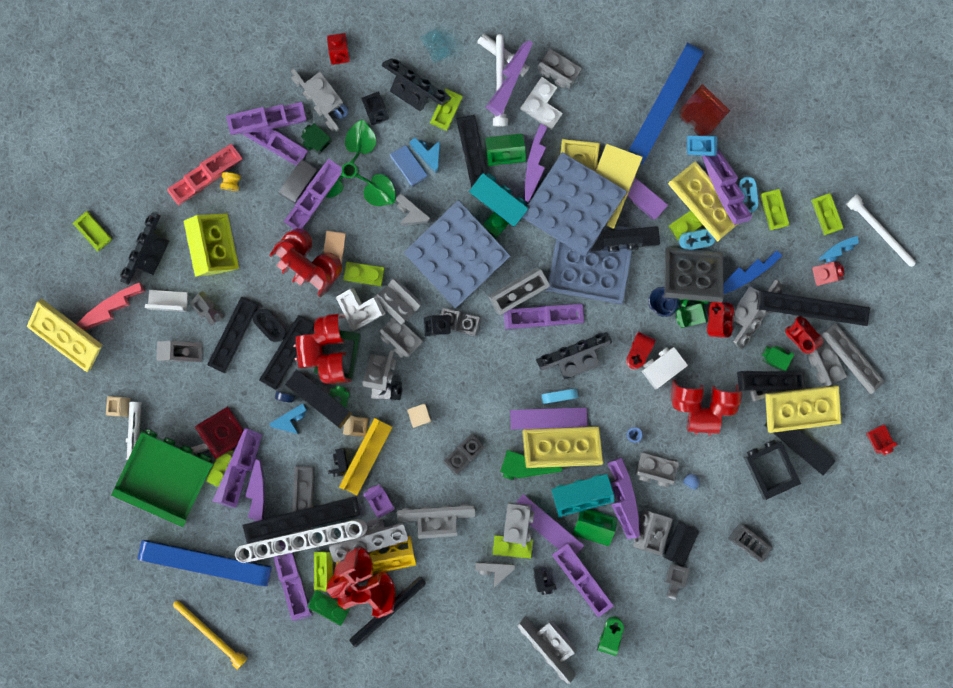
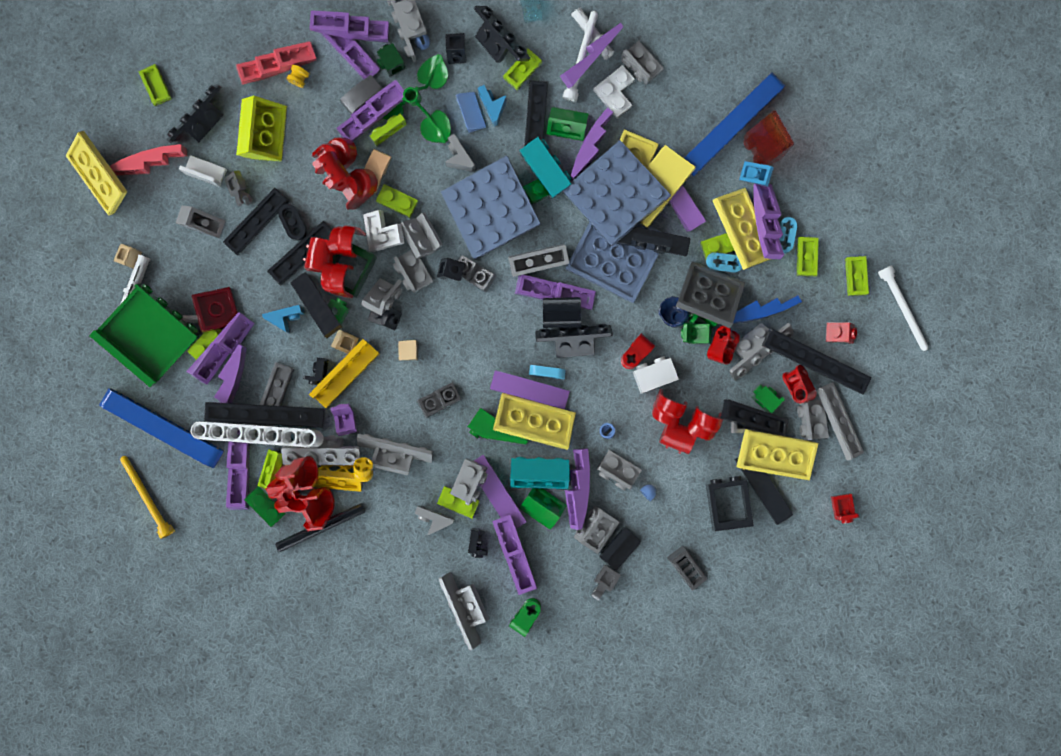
camera: 25 degrees right, 0 degrees up
(284, 396) = (285, 293): dark blue tile -> none
(338, 200) = (392, 126): none -> lime plate
(409, 540) = (360, 465): none -> yellow wheel
(556, 334) = (561, 312): none -> black panel
(835, 251) = (854, 313): dark azure slope -> none

